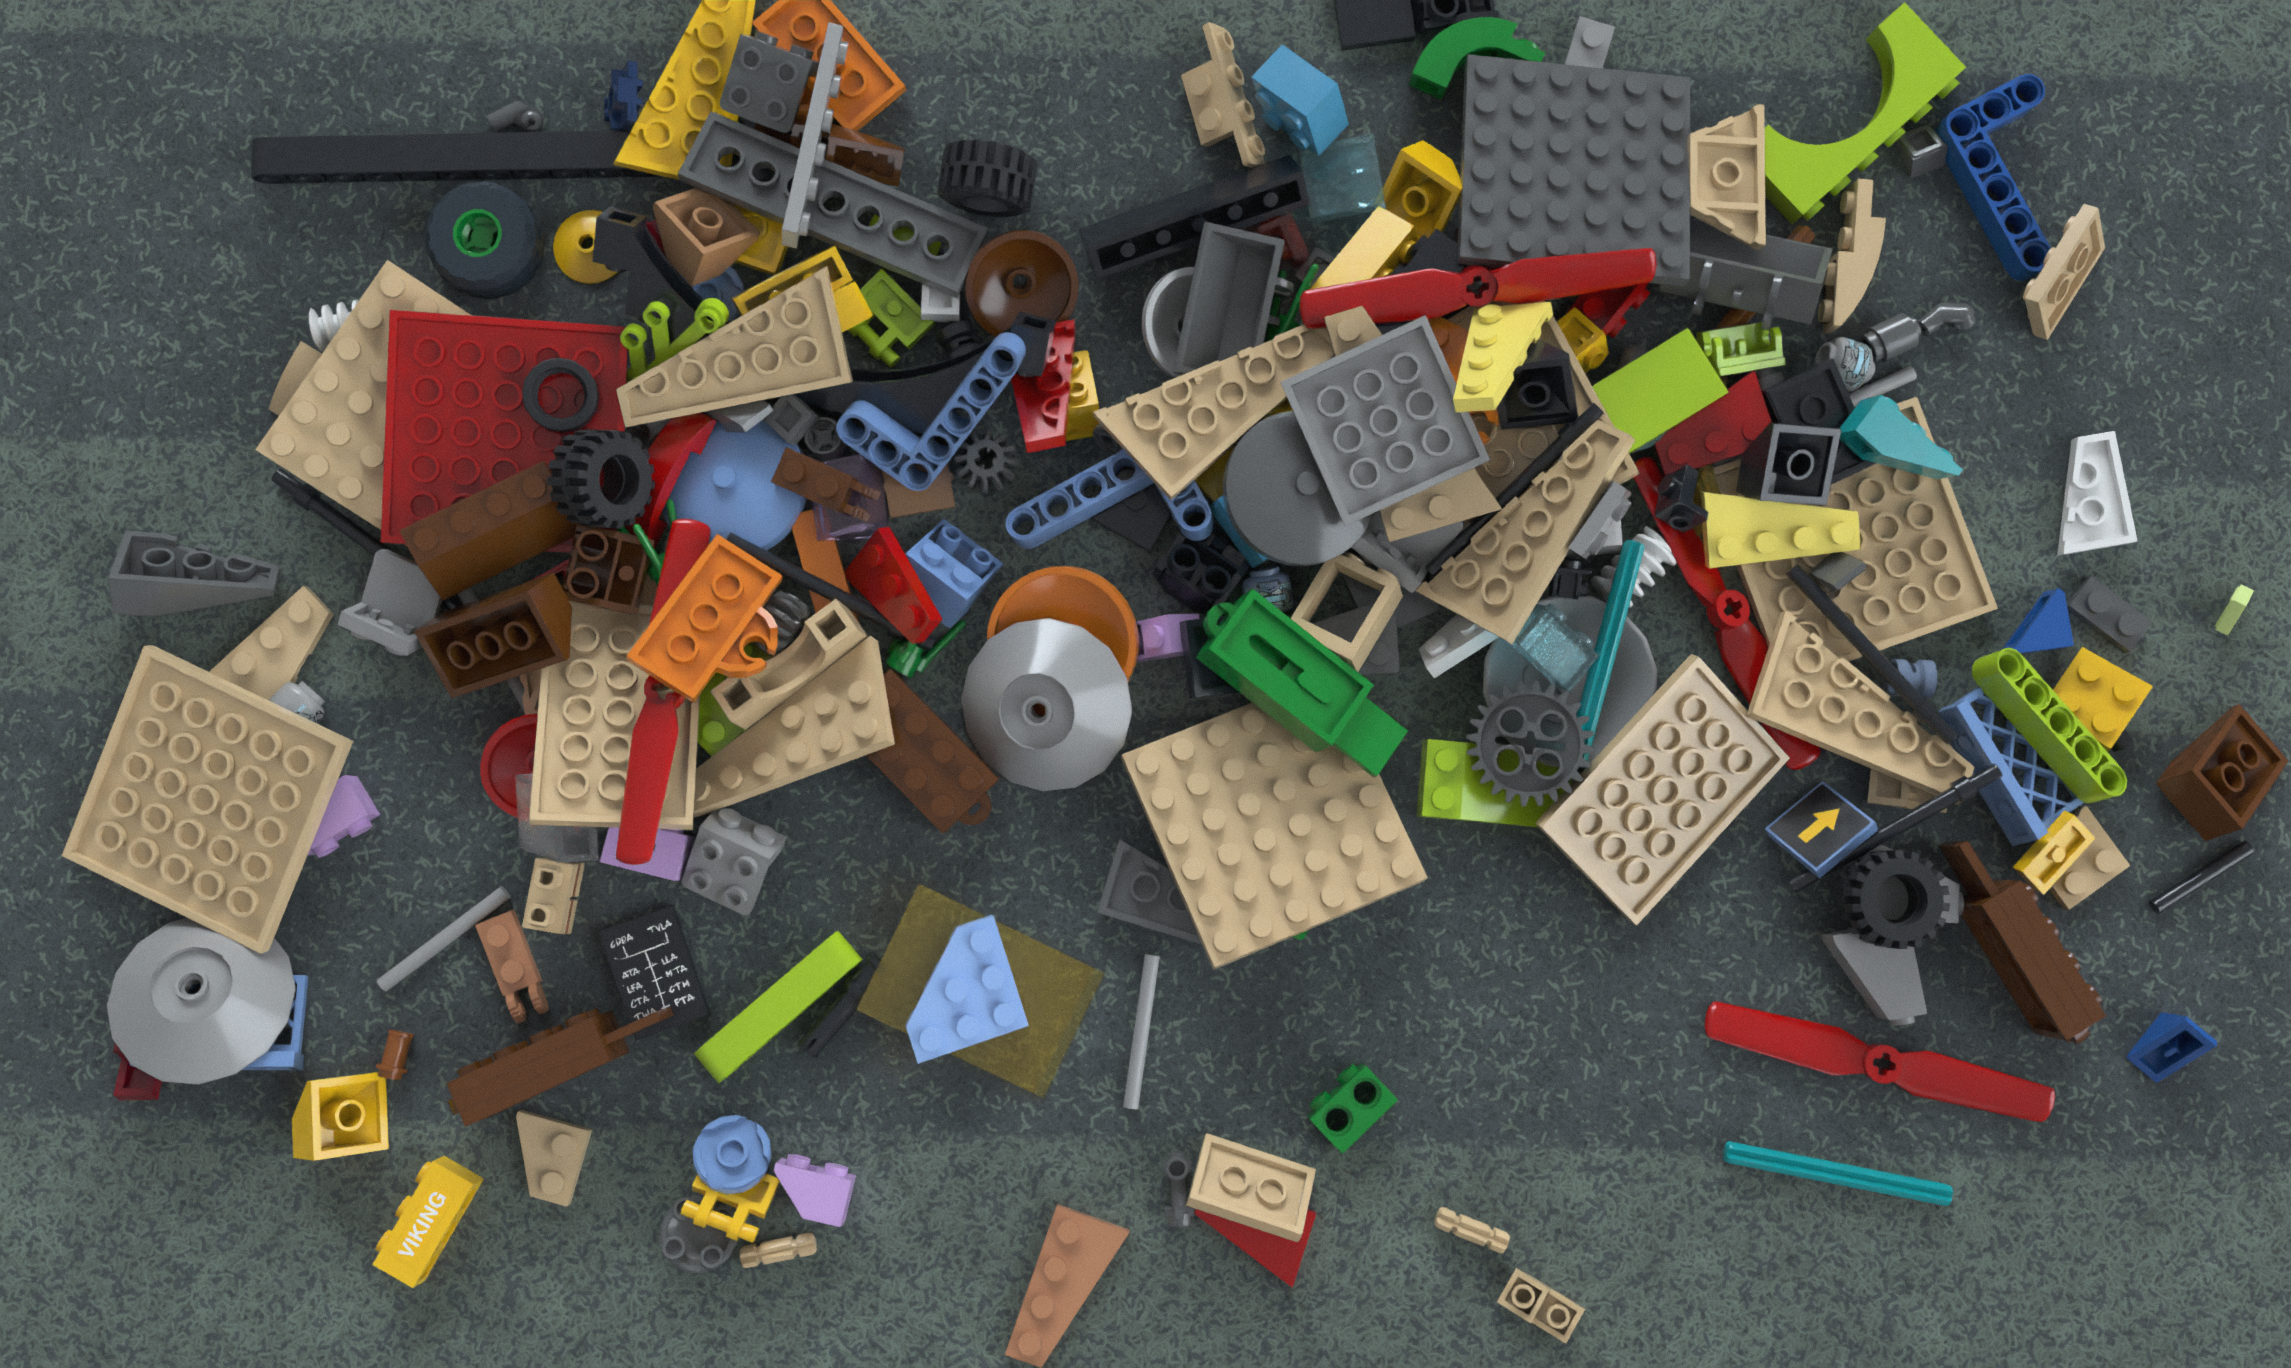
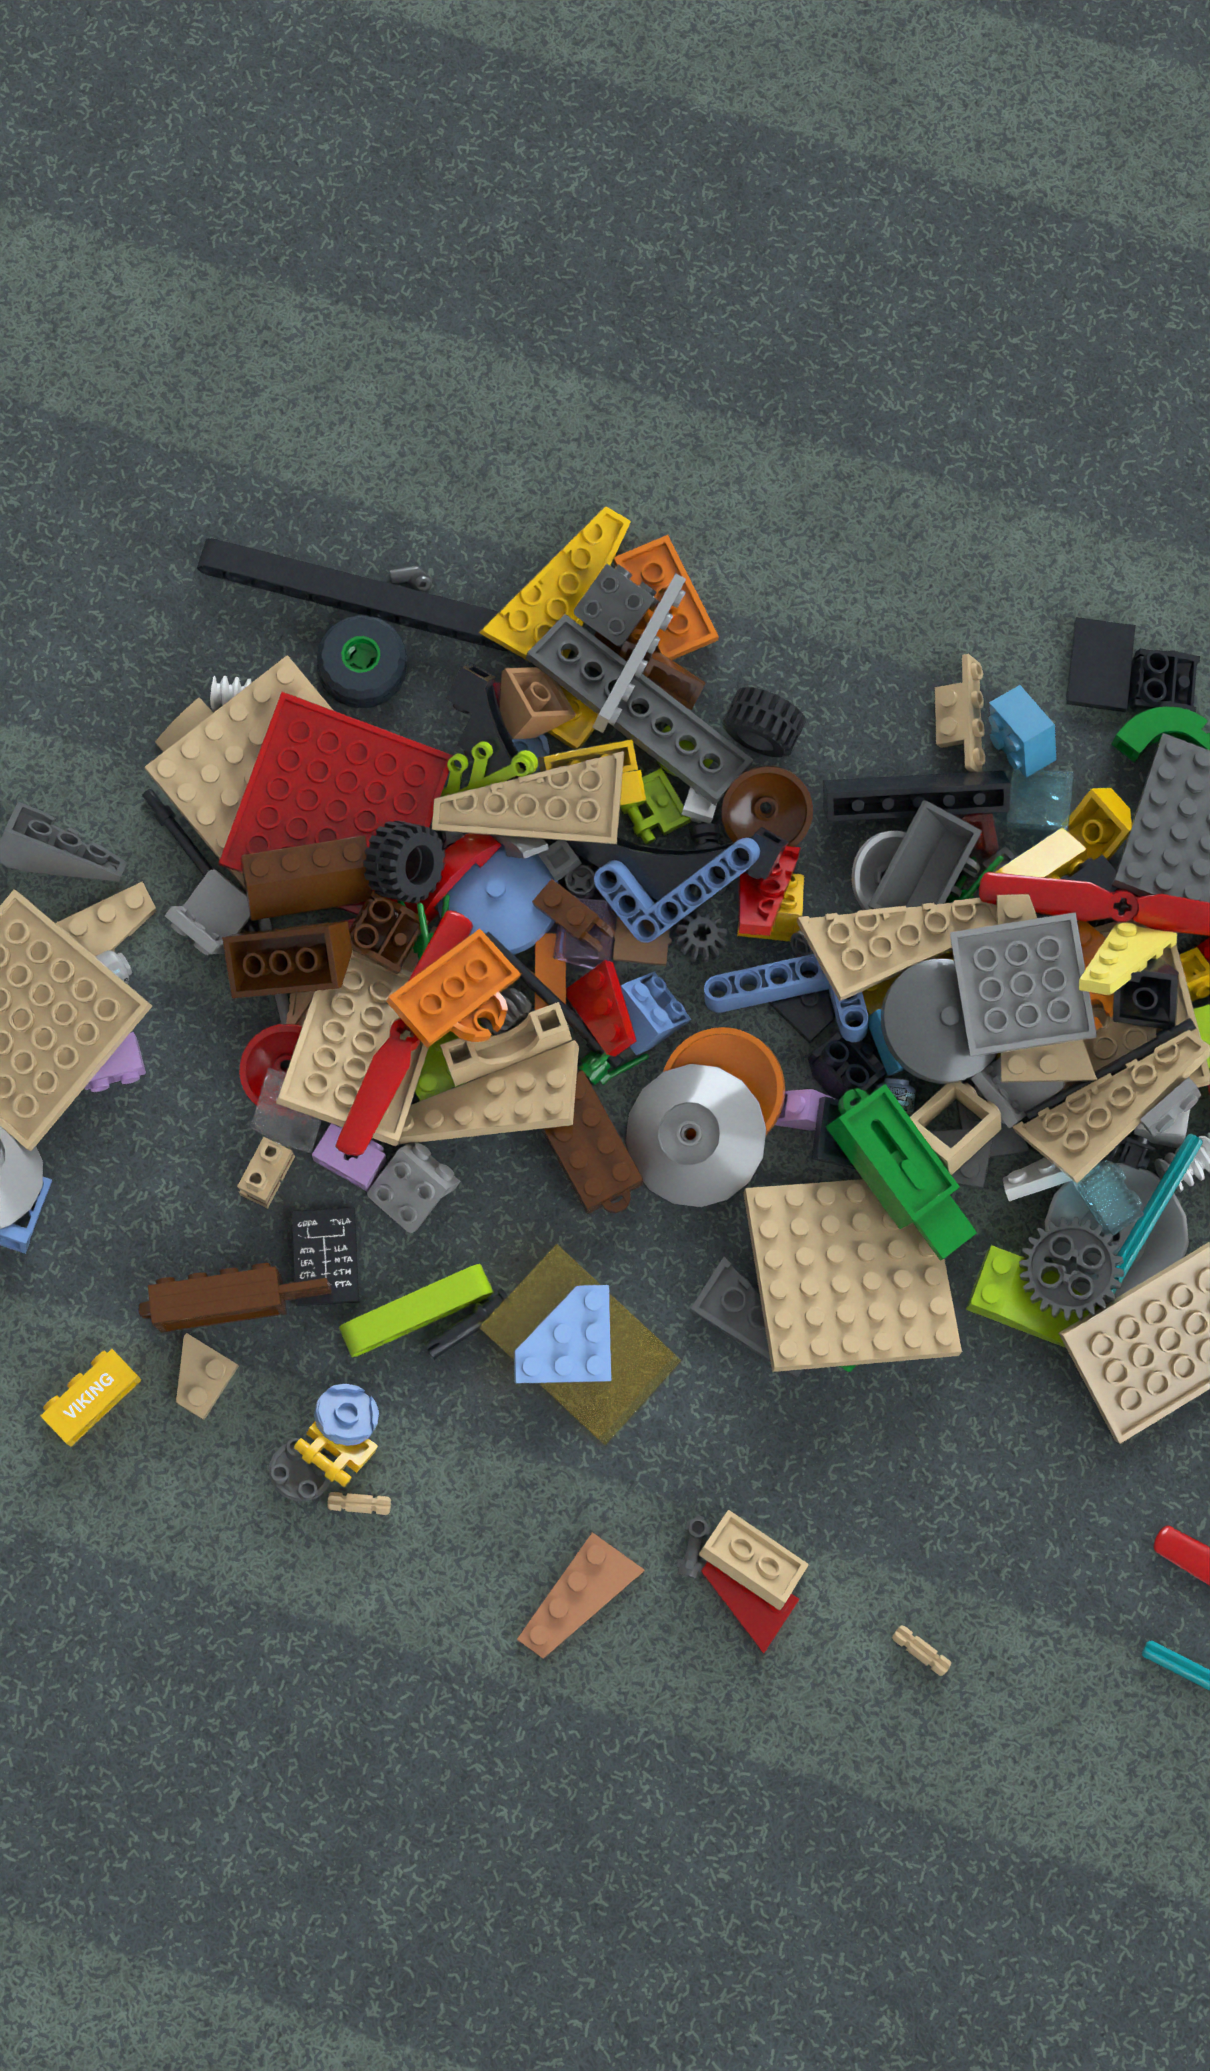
camera: 15 degrees right, 10 degrees down
(341, 1117) = (47, 1295): yellow slope -> none
(395, 1055) = (103, 1261): dark orange pin -> none
(443, 939) = (167, 1183): light grey bar -> none
(512, 963) = (215, 1215): nougat hinge -> none
(566, 366) = (395, 769): black tyre -> none
(569, 252) = (425, 697): yellow dish -> none
(622, 100) = (500, 586): dark blue piece -> none
(816, 1191) = (406, 1465): lavender slope -> none
(1141, 1031) = (698, 1414): light grey bar -> none
(1359, 1114) = (854, 1527): green brick -> none
(1541, 1305) = (962, 1728): tan slope -> none

